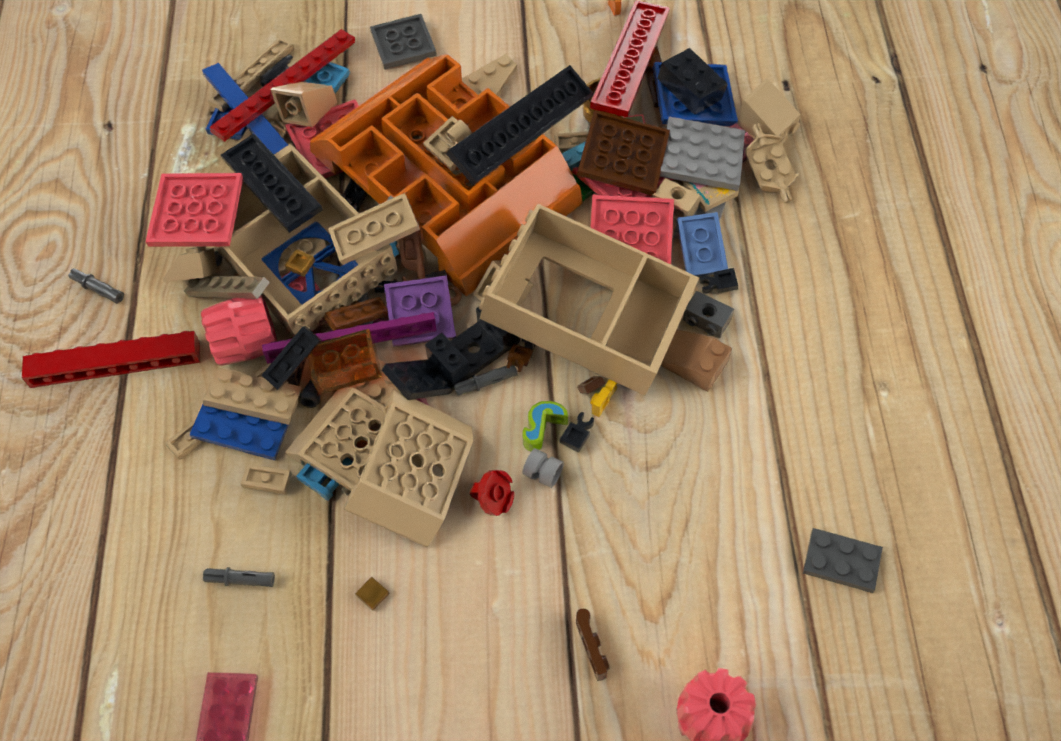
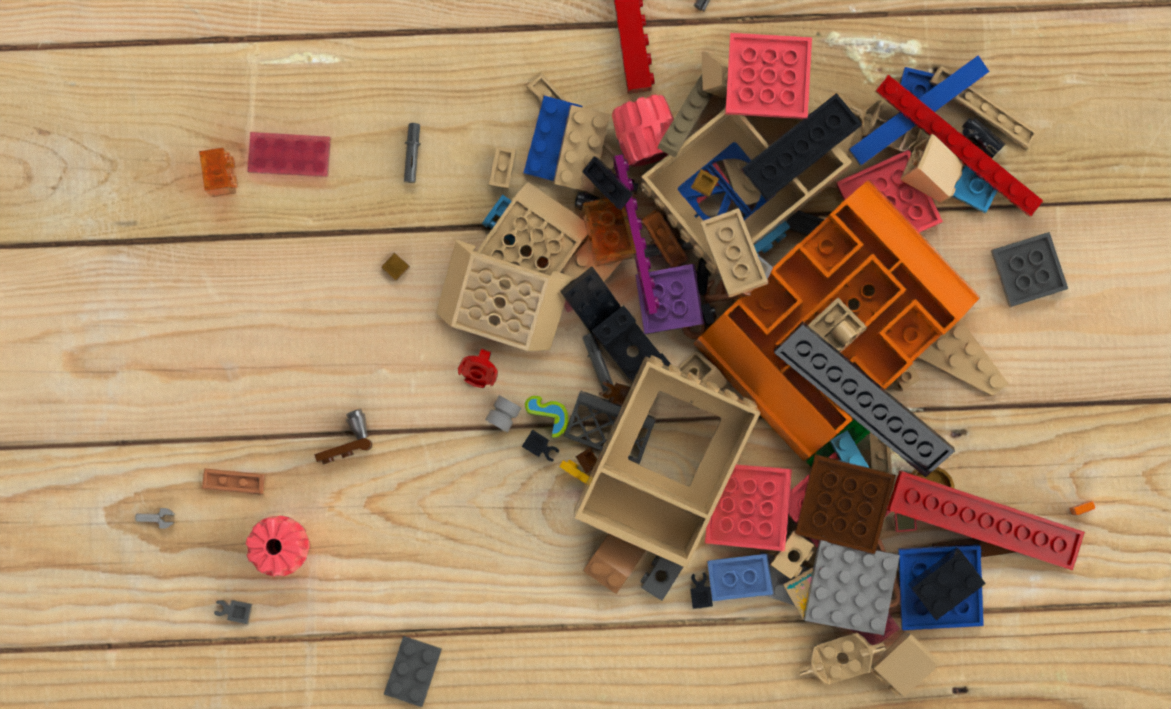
camera: 90 degrees right, 25 degrees up
(532, 373) = (603, 406): none -> dark grey fence
(556, 630) = (357, 423): none -> flat silver cone

